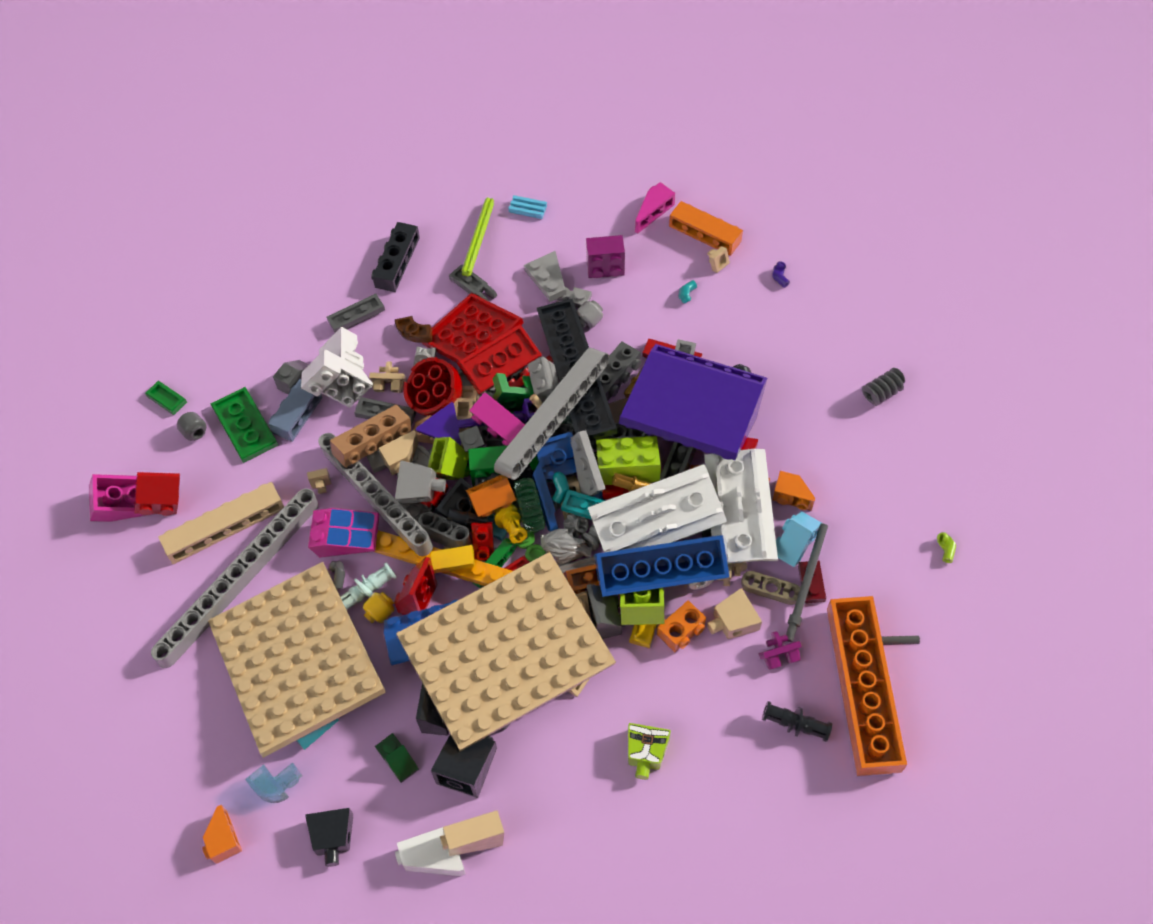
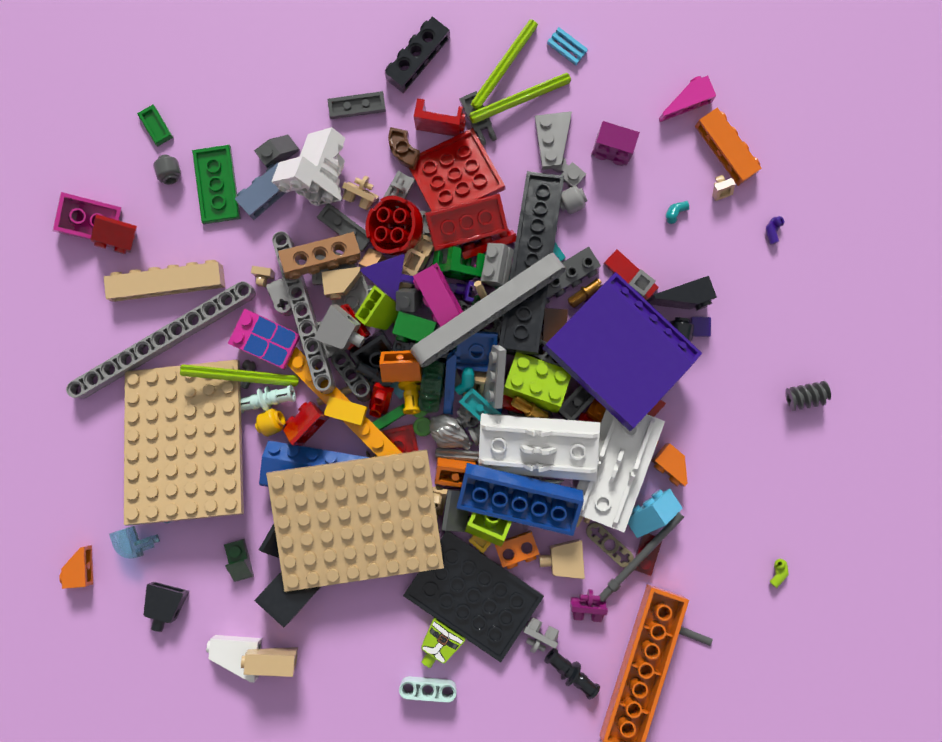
camera: 20 degrees right, 25 degrees up
(331, 570) = (238, 375): none -> lime axle
(346, 493) = (279, 296): none -> light grey piece
(438, 296) = (438, 122): none -> red panel
(503, 255) = (519, 98): none -> lime axle
(661, 690) = (475, 597): none -> black plate
(662, 793) = (419, 694): none -> light aqua beam
(731, 345) = (690, 295): none -> black slope
(745, 701) = (549, 638): none -> light grey hips
(759, 368) = (702, 326): none -> dark purple tile

